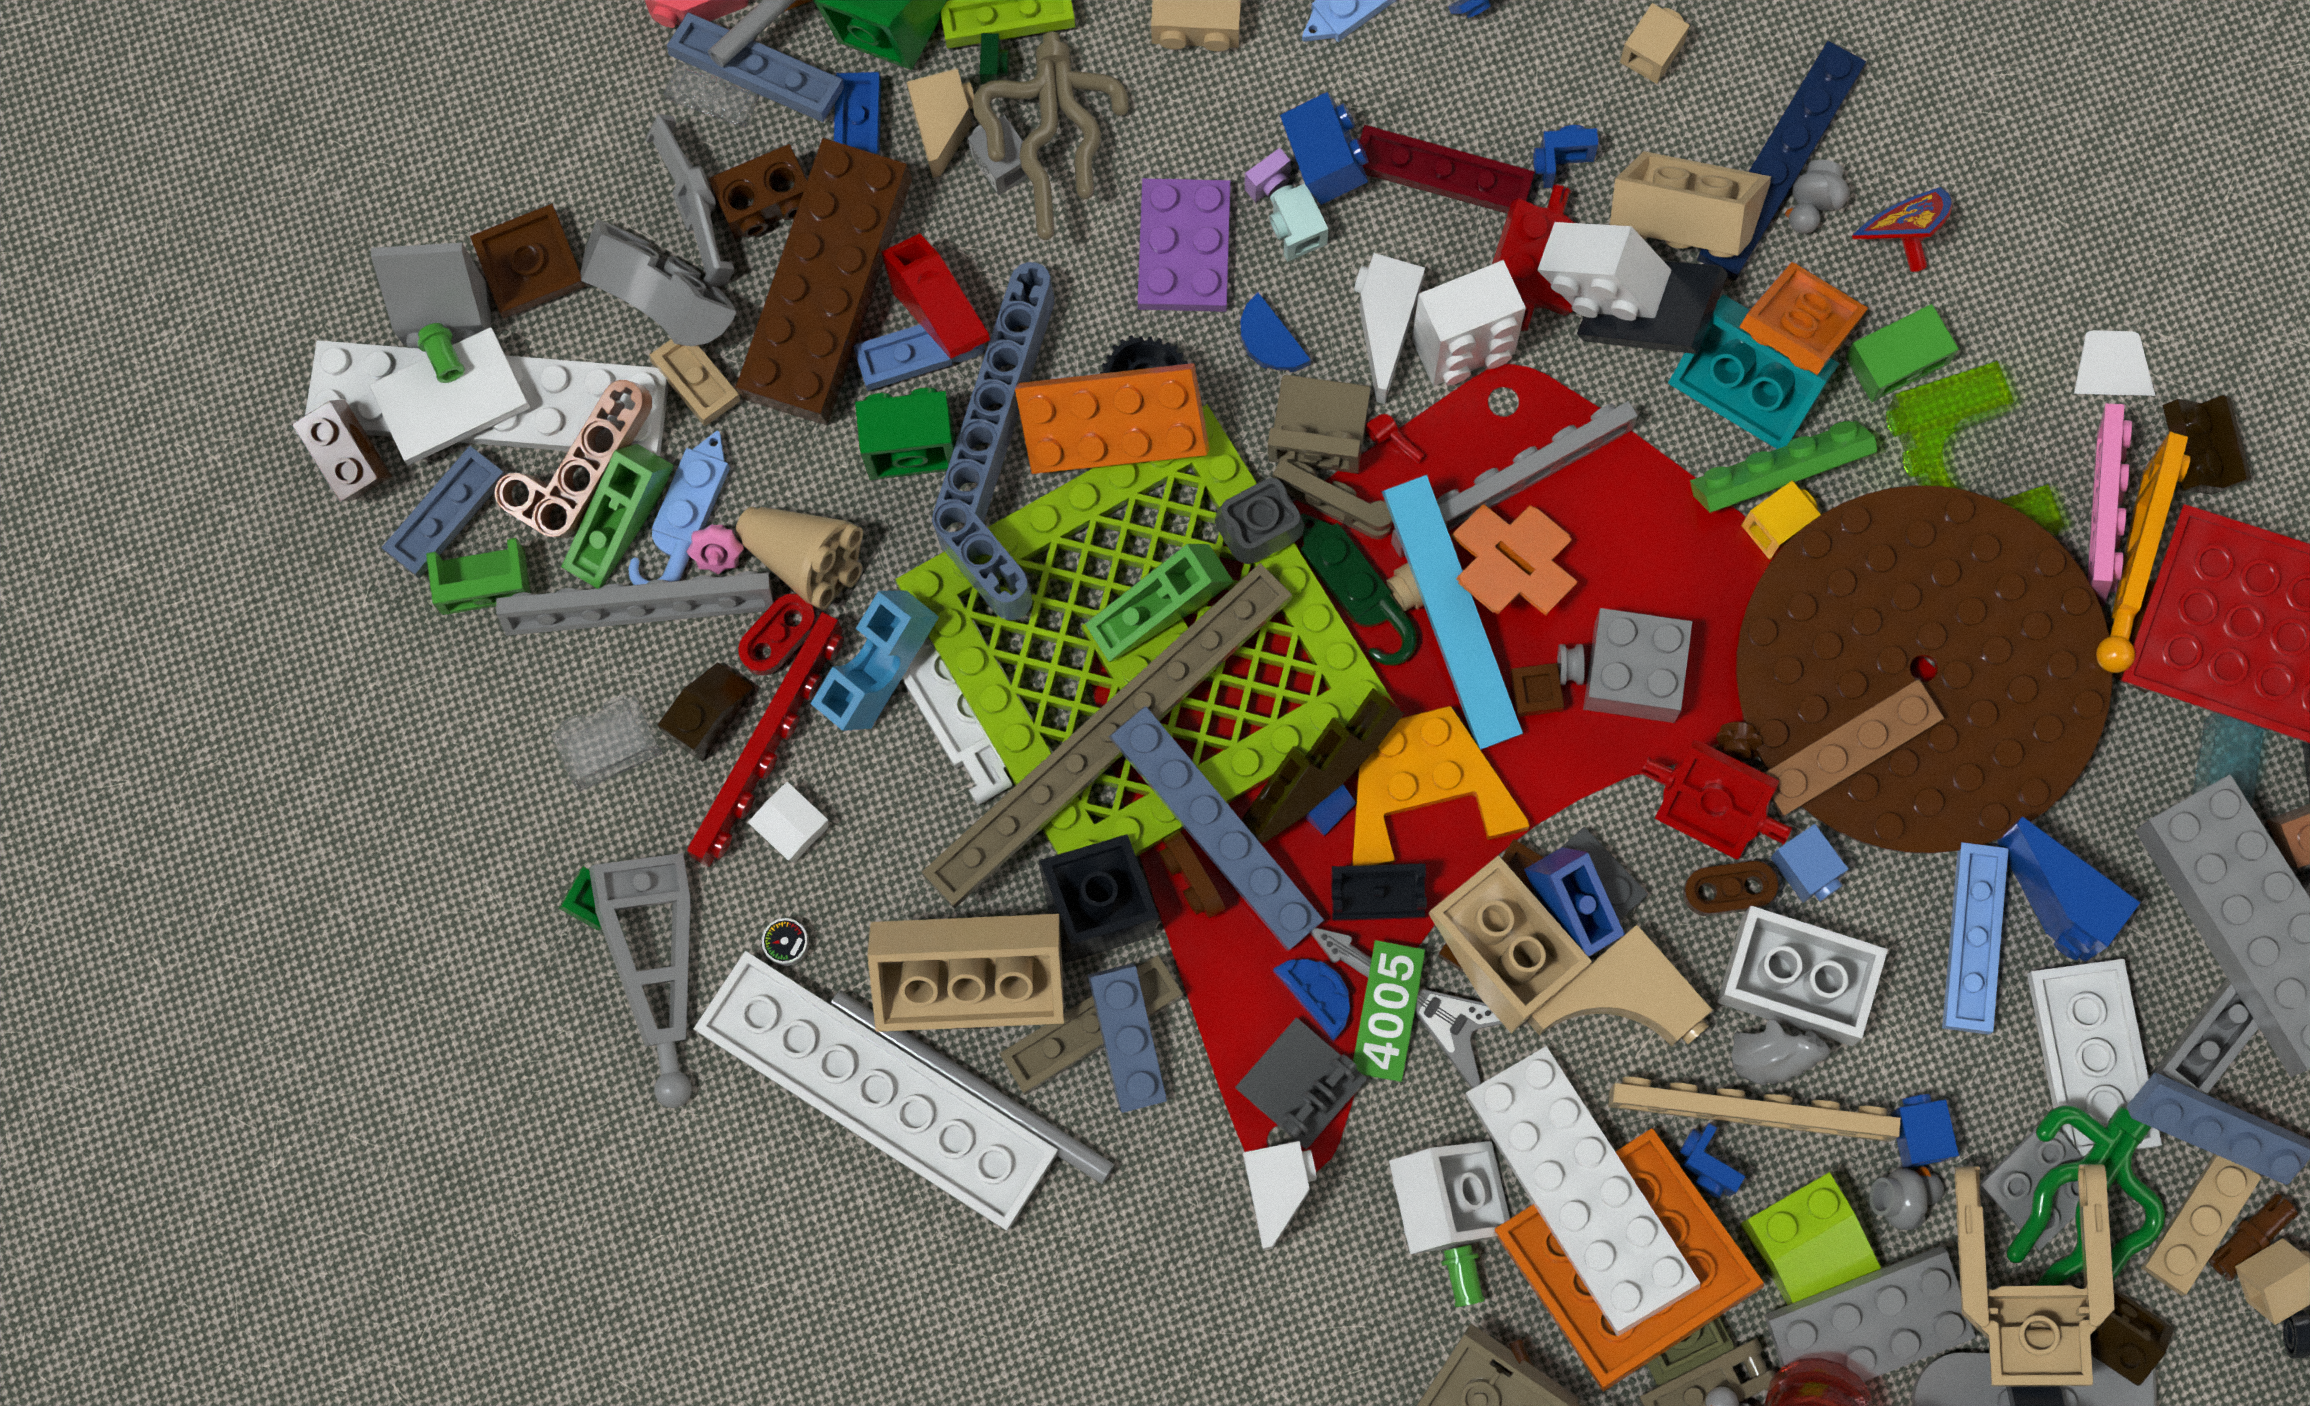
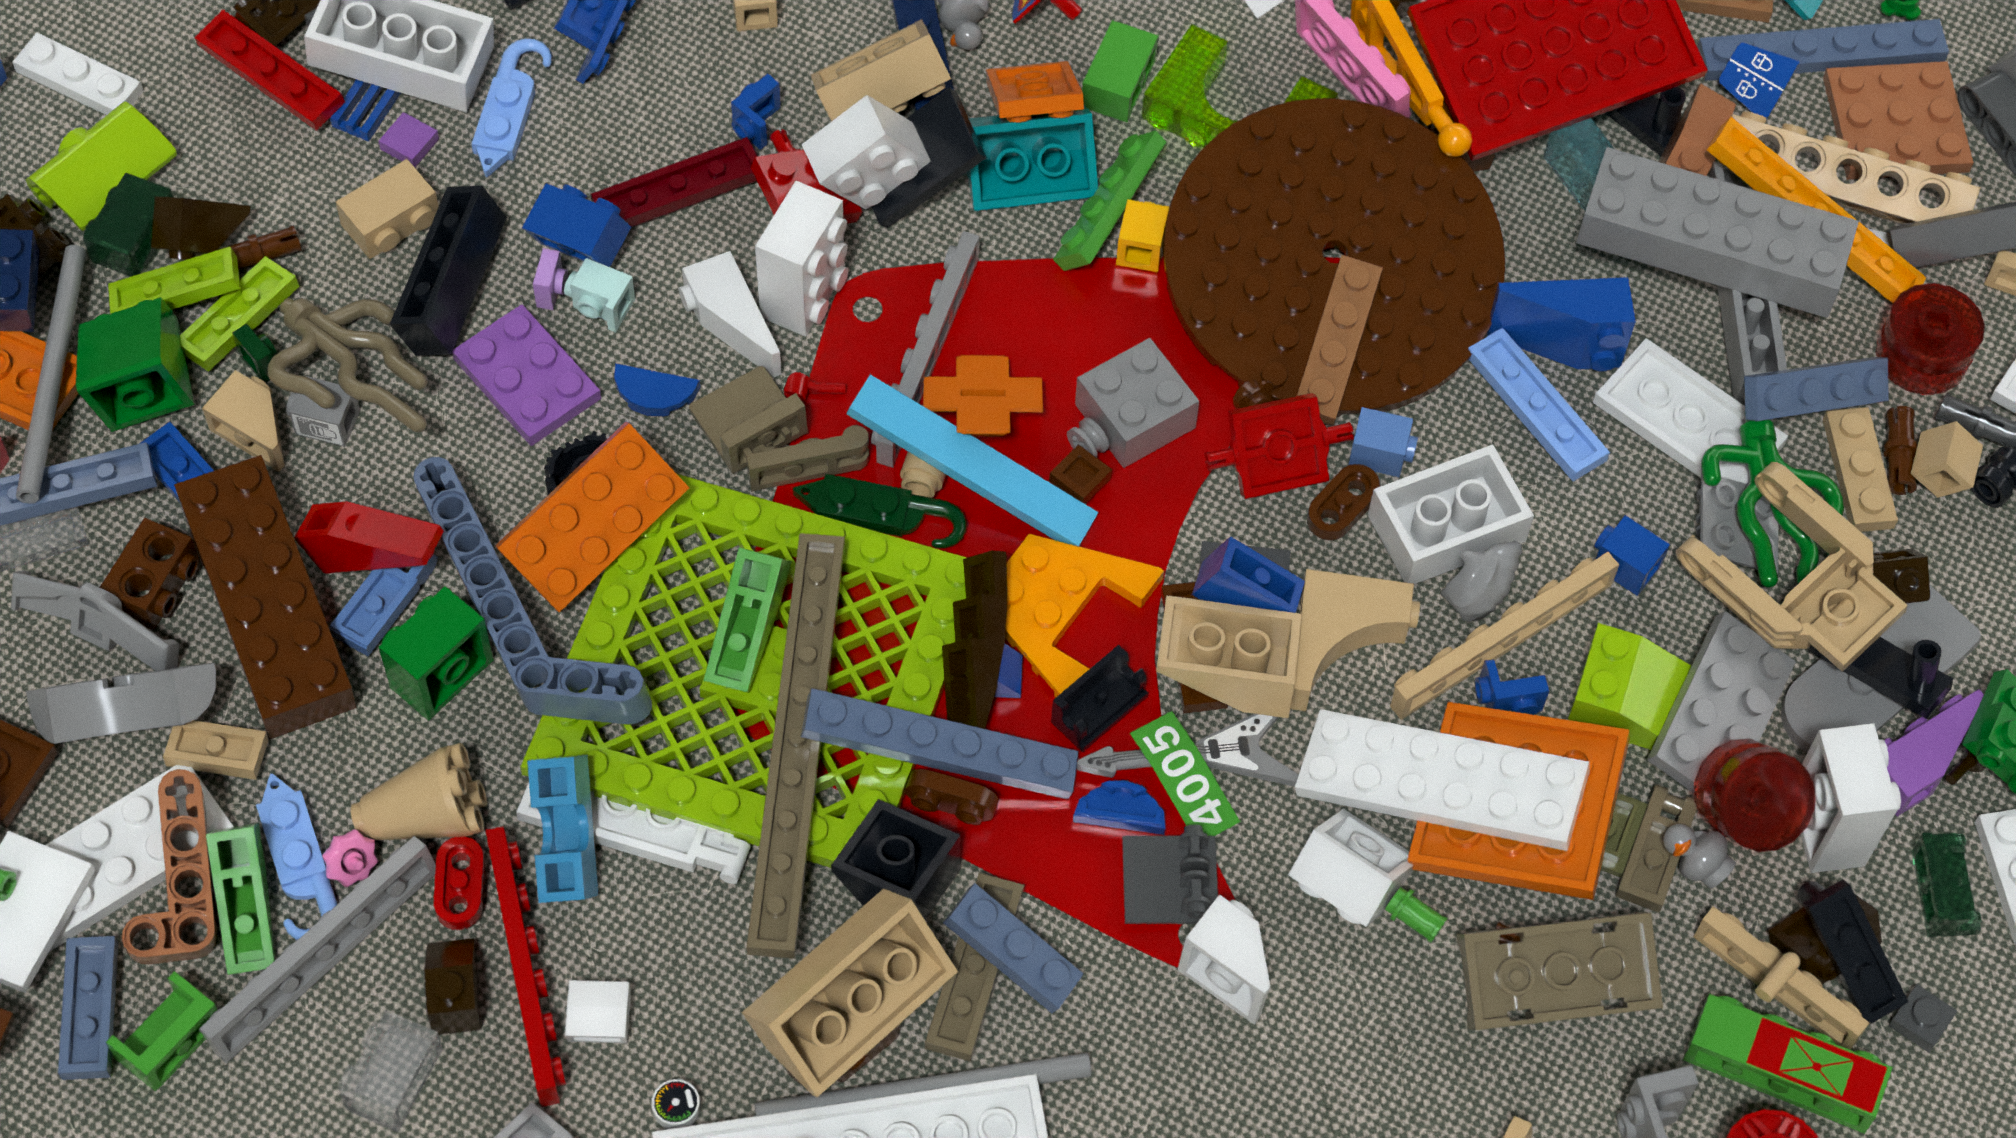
camera: 50 degrees left, 15 degrees down
(1193, 107) = (448, 270): none -> black brick
(1259, 521) = (769, 509): dark grey piece -> none
(1905, 1196) = (1660, 608): light grey animal -> none

